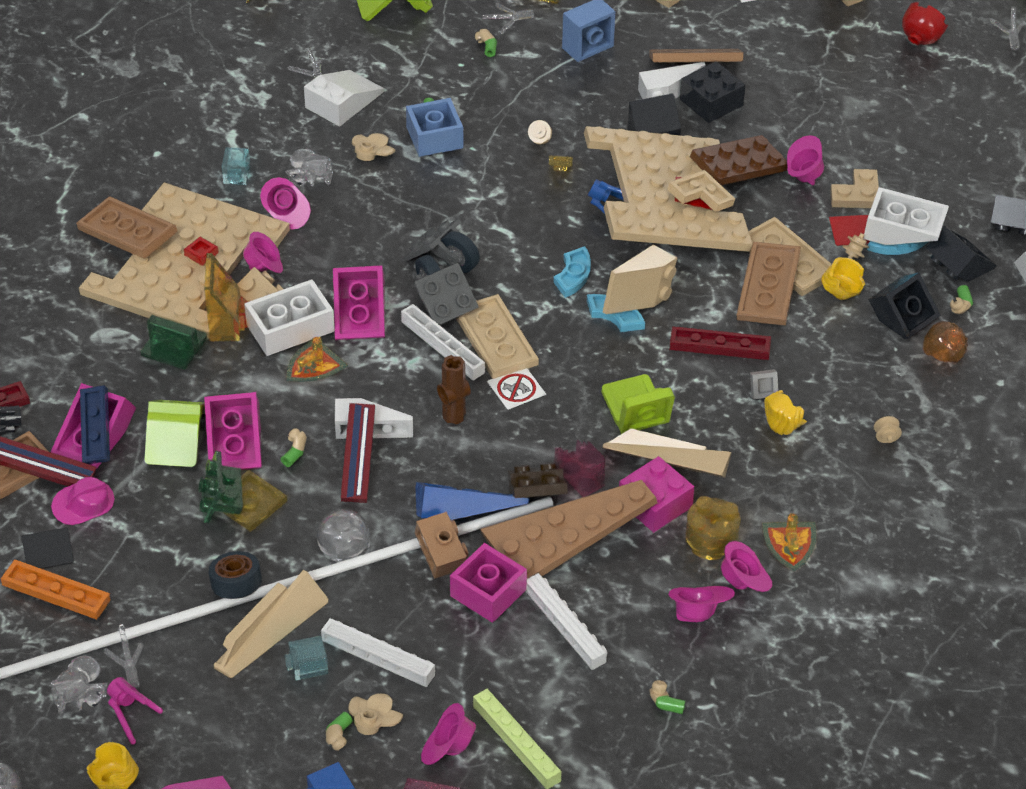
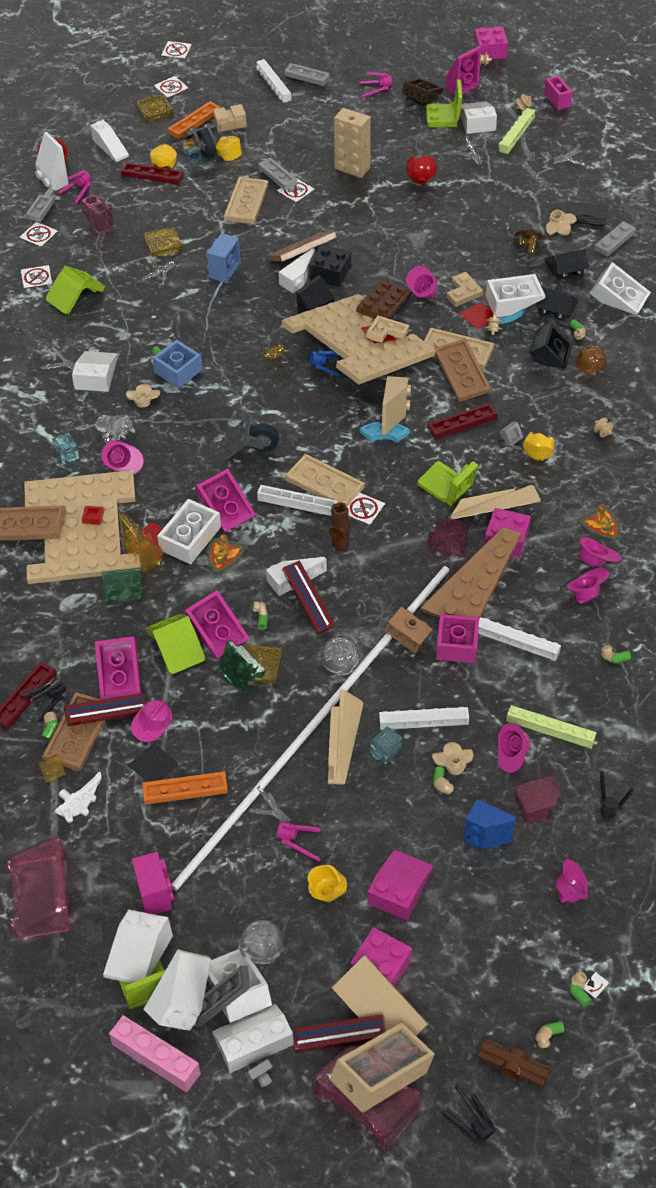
camera: 30 degrees left, 5 degrees up
(75, 686) = (252, 845): clear animal -> none
(95, 425) = (124, 665): dark blue tile -> none
(235, 574) = (296, 716): black wheel -> none
(257, 285) = (152, 522): tan bracket -> none
(262, 253) = (135, 499): dark pink piece -> none
(437, 499) = (387, 602): wedge -> none
(443, 290) = (273, 465): dark grey plate -> none
(490, 41) = (161, 292): arm -> none
(536, 481) = (433, 560): dark brown plate -> none
(540, 132) = (245, 337): tan wheel -> none
(575, 273) = (339, 417): medium azure tile -> none
(712, 526) = (557, 536): clear yellow brick -> none
(844, 278) = (504, 347): yellow hair -> none
(992, 169) = (533, 237): none -> clear yellow shield

